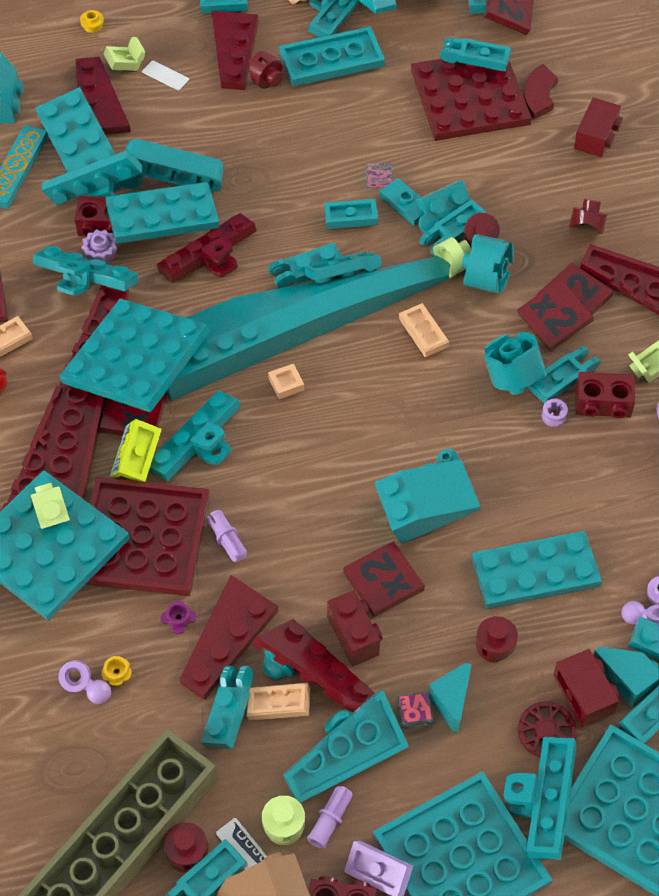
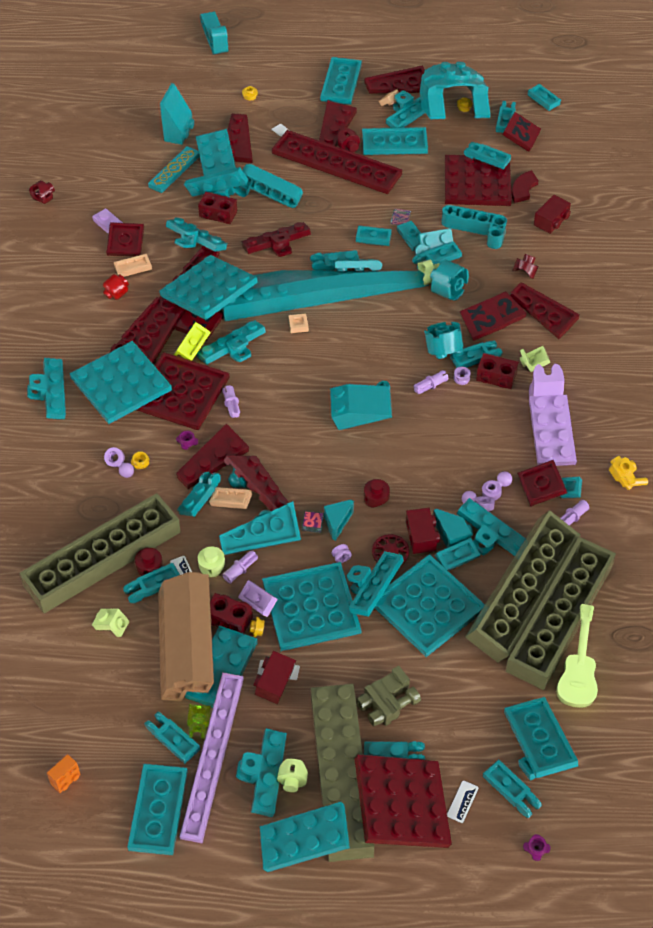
camera: 15 degrees right, 5 degrees down
(49, 505) = (127, 358): yellowish green bracket -> none
(100, 245) = (210, 223): lavender piece -> none
(125, 57) = (262, 118): yellowish green bracket -> none
(162, 212) = (253, 210): teal plate -> none
(257, 106) = (337, 161): none -> dark red plate
(353, 627) = (289, 465): dark red brick -> none
(383, 578) = (319, 446): dark red tile -> none
(423, 330) = (395, 311): light nougat plate -> none
(478, 755) = (341, 553): none -> lavender bush
(481, 224) = (453, 255): dark red piece -> none
(494, 161) = (476, 222): none -> teal beam
(513, 434) = (430, 382): none -> lavender axle
(536, 570) = (416, 461): teal plate -> none

